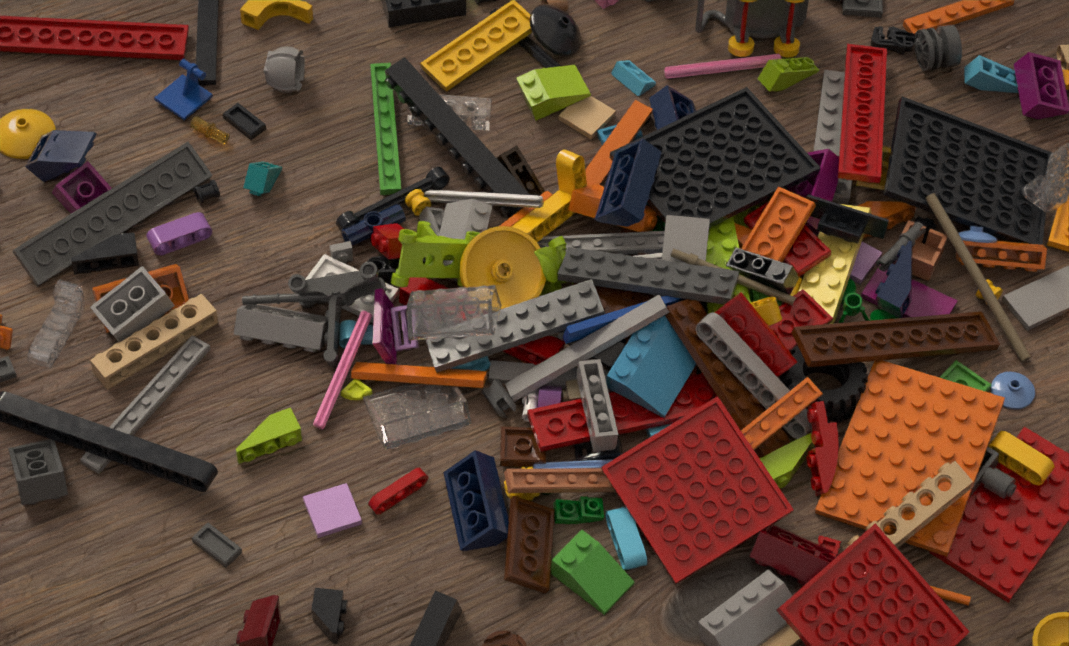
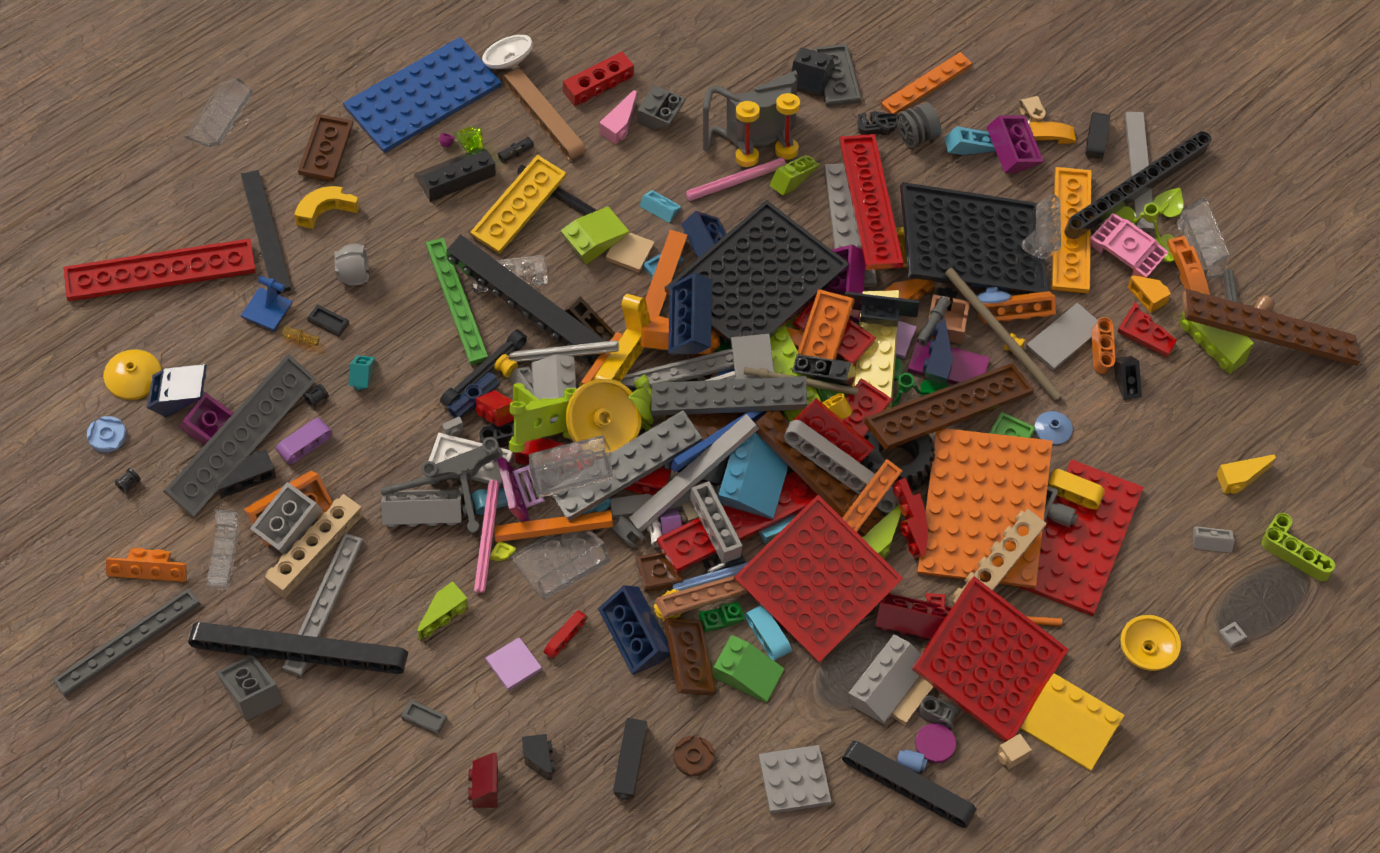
camera: 15 degrees left, 5 degrees up
(555, 30) = (581, 176): black dish -> none

